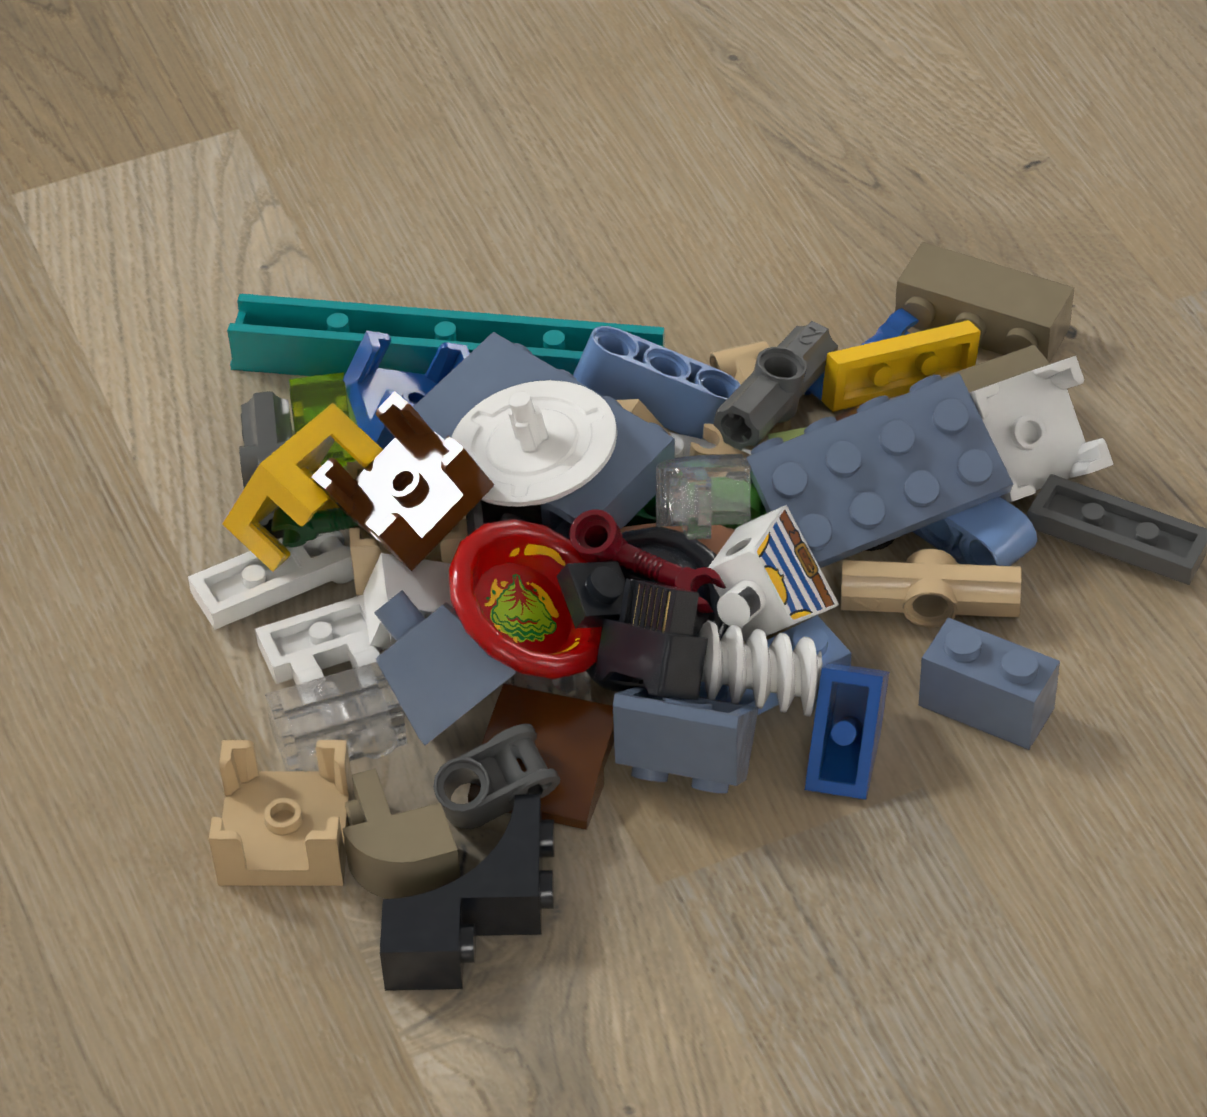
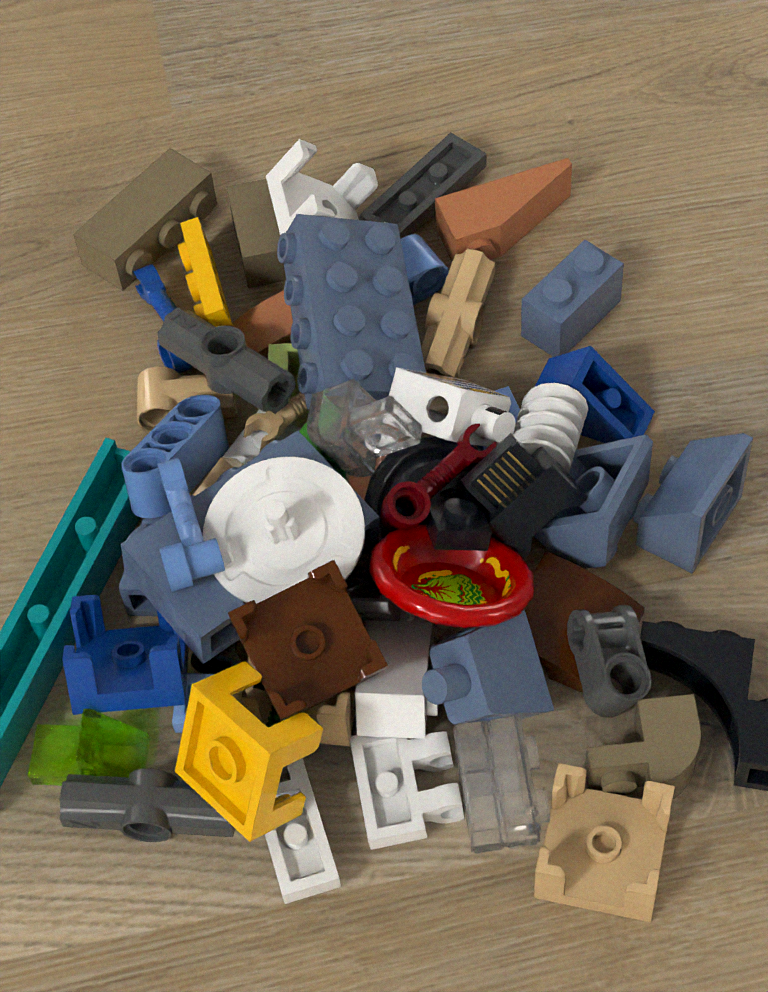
camera: 75 degrees left, 10 degrees up
(481, 379) = (192, 556): none -> medium blue brick
(720, 835) = (693, 499): none -> sand blue slope
(1105, 601) = (502, 210): none -> nougat slope

